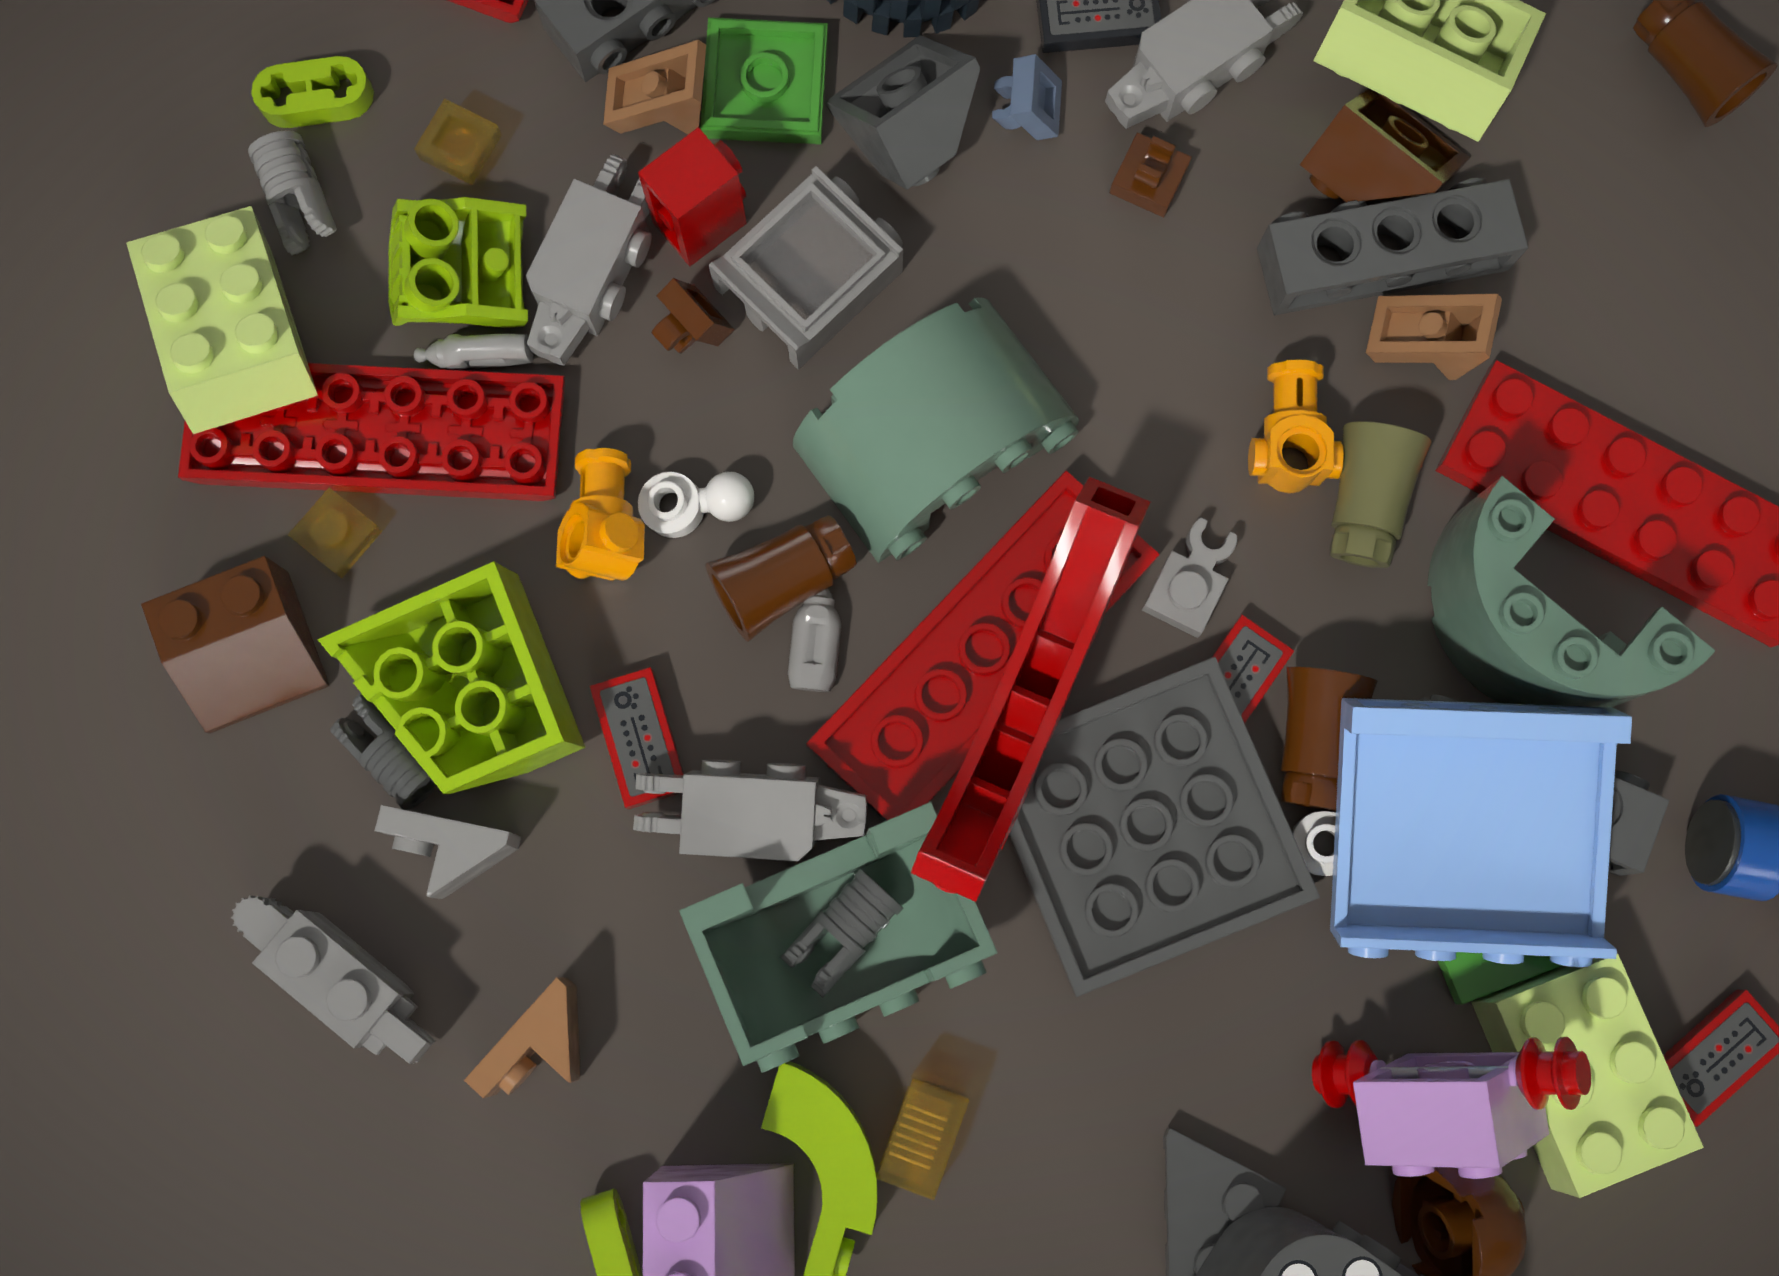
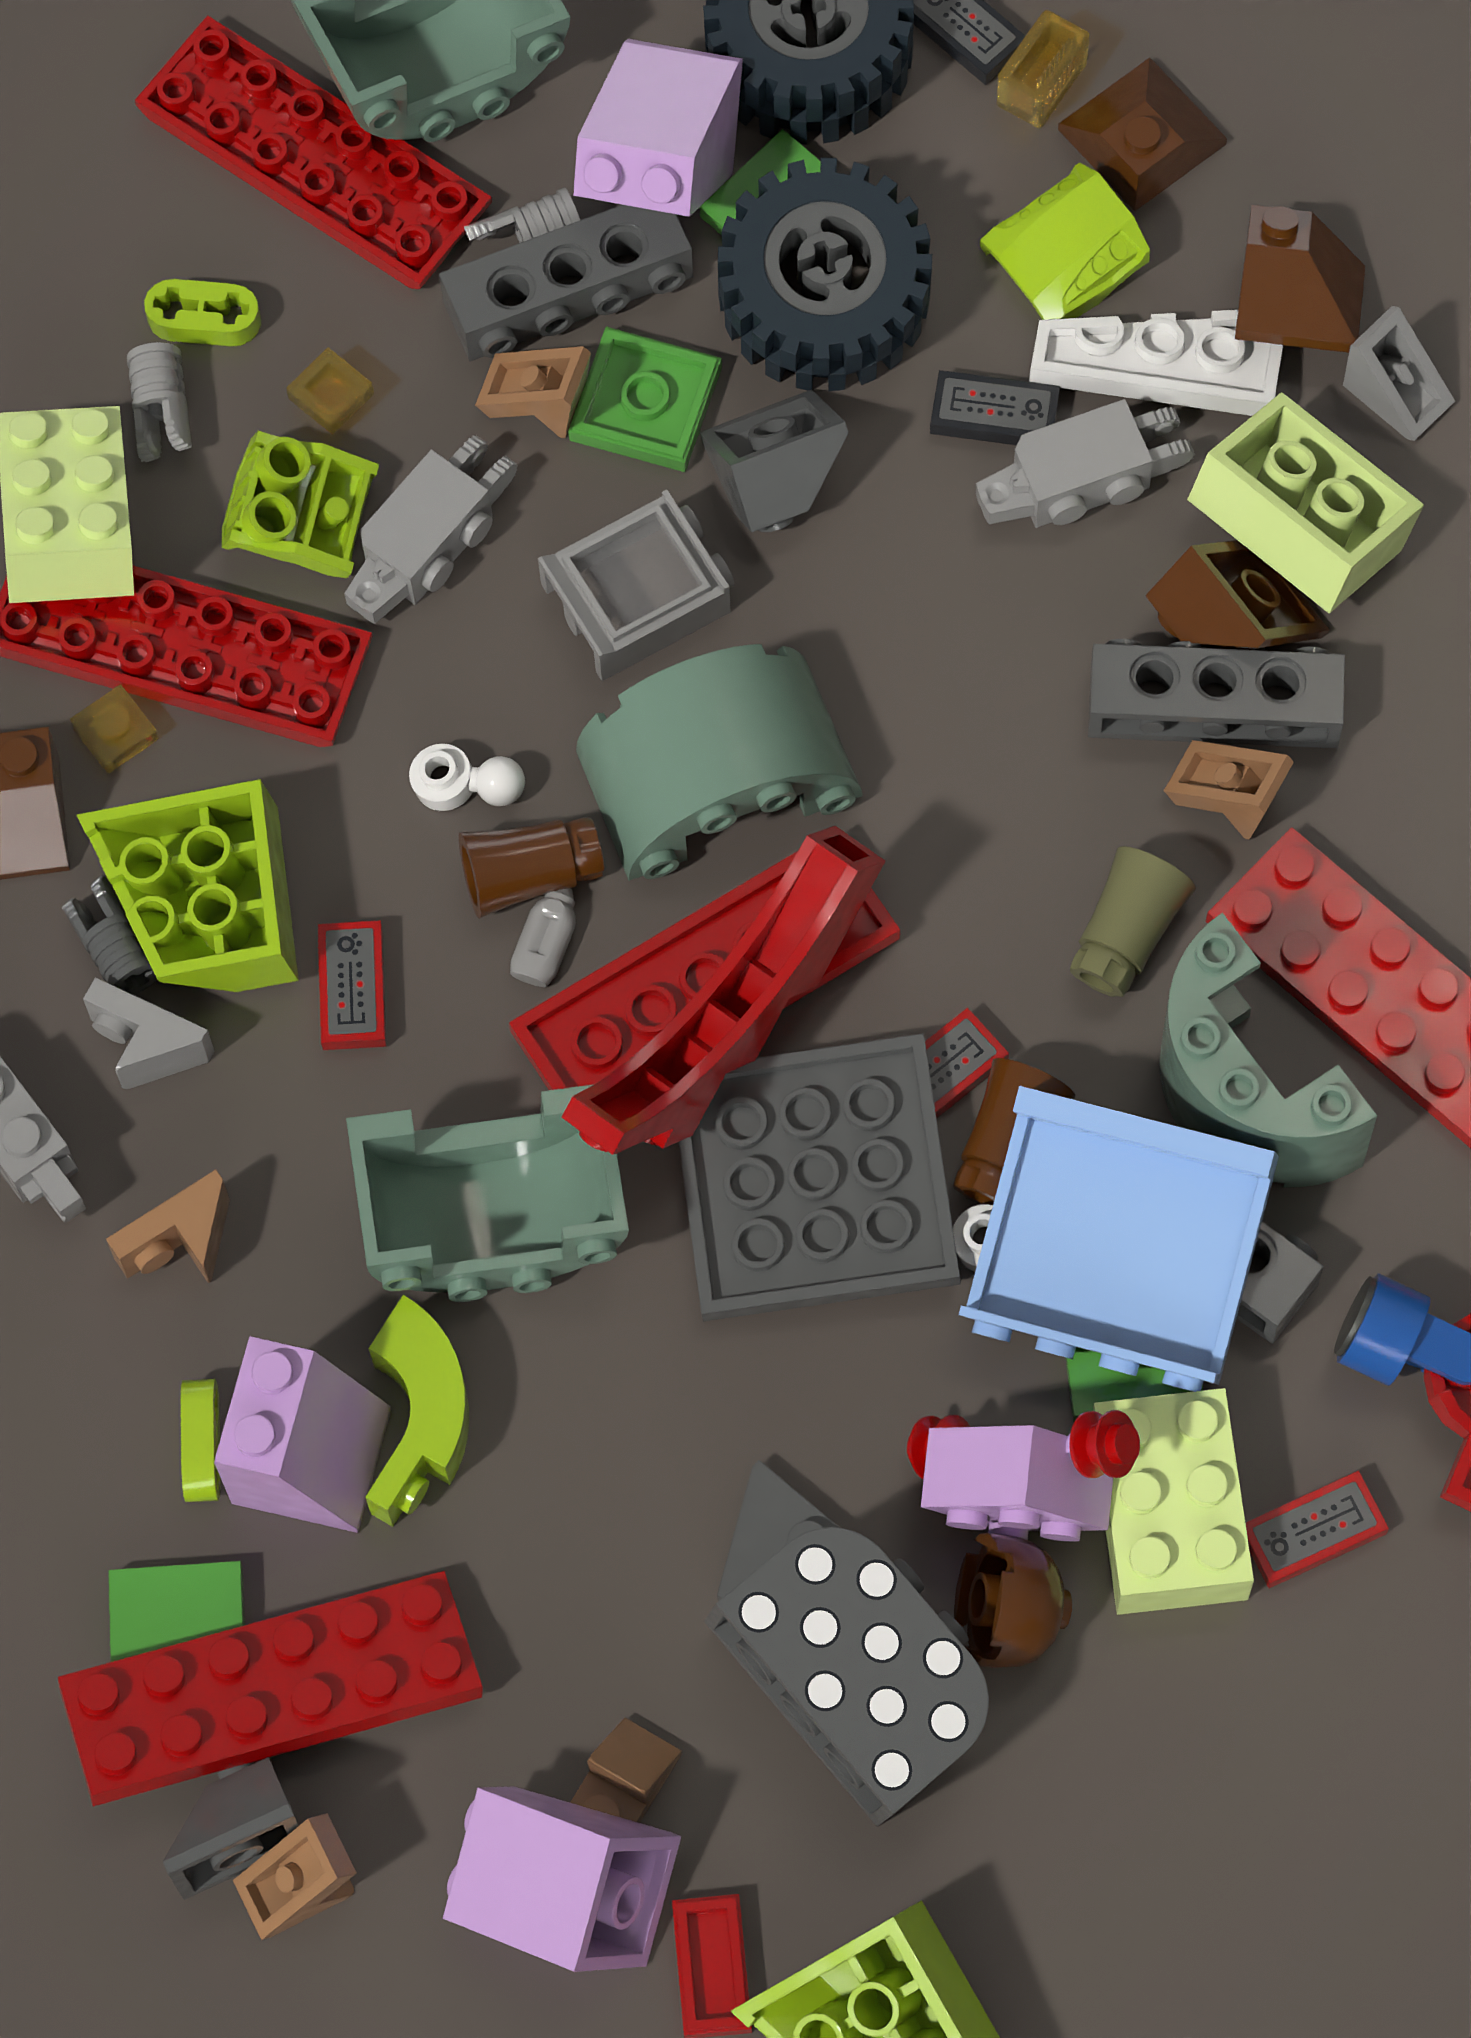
camera: 20 degrees right, 10 degrees down
(476, 351) = (295, 591): light grey piece -> none
(599, 528) = (367, 781): light orange connector -> none
(690, 318) = (507, 606): reddish brown tile -> none
(695, 195) = (543, 492): red brick -> none
(751, 813) = (439, 1070): light grey hinge -> none
(853, 920) = (507, 1188): dark grey hinge -> none
(922, 1137) = (519, 1405): clear yellow piece -> none
(1033, 96) = (902, 474): sand blue tile -> none
(1150, 174) = (1001, 574): reddish brown tile -> none
(1189, 586) = (926, 971): light grey plate -> none
(1297, 426) = (1069, 845): light orange connector -> none

